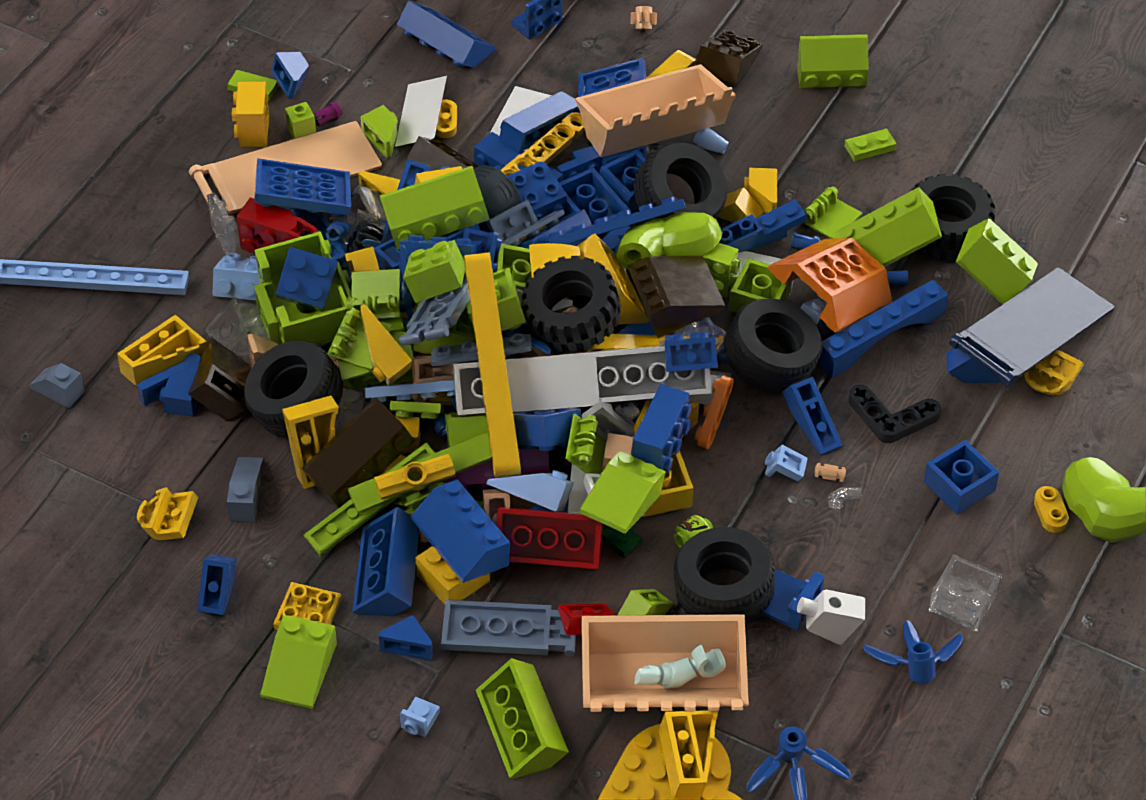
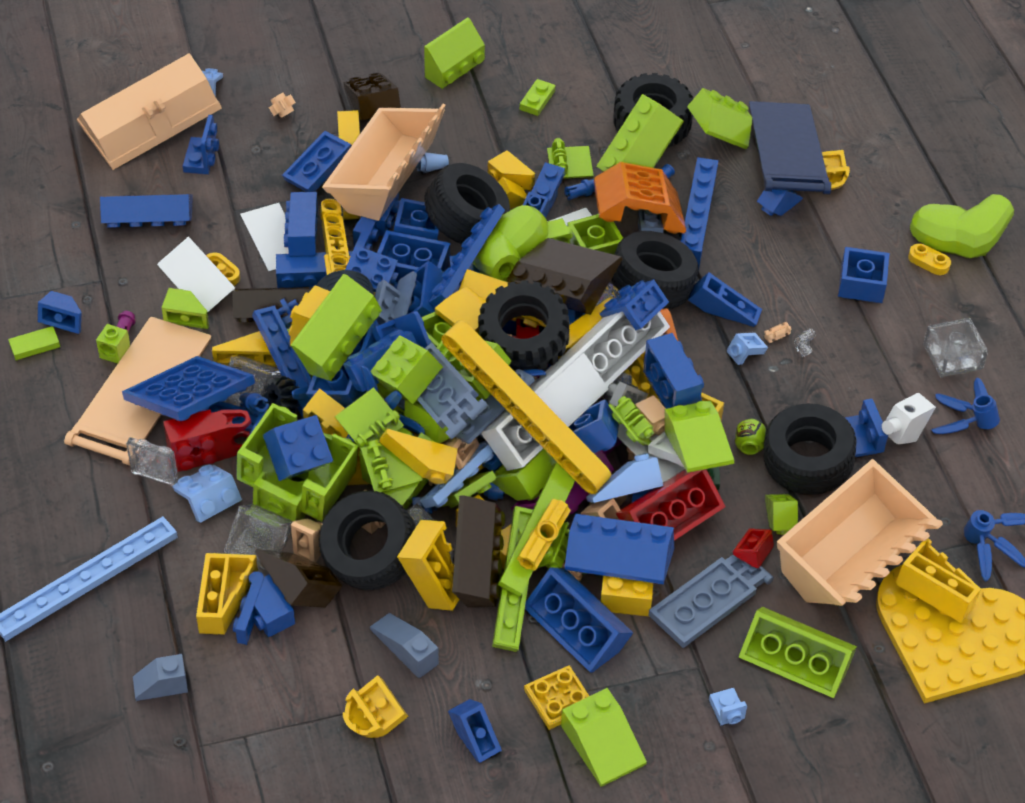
camera: 45 degrees left, 0 degrees up
(251, 114) = (72, 362): yellow brick -> none
(406, 639) = (658, 658): blue slope -> none
(682, 671) = (864, 528): light aqua piece -> none
(892, 421) = (773, 271): black beam -> none

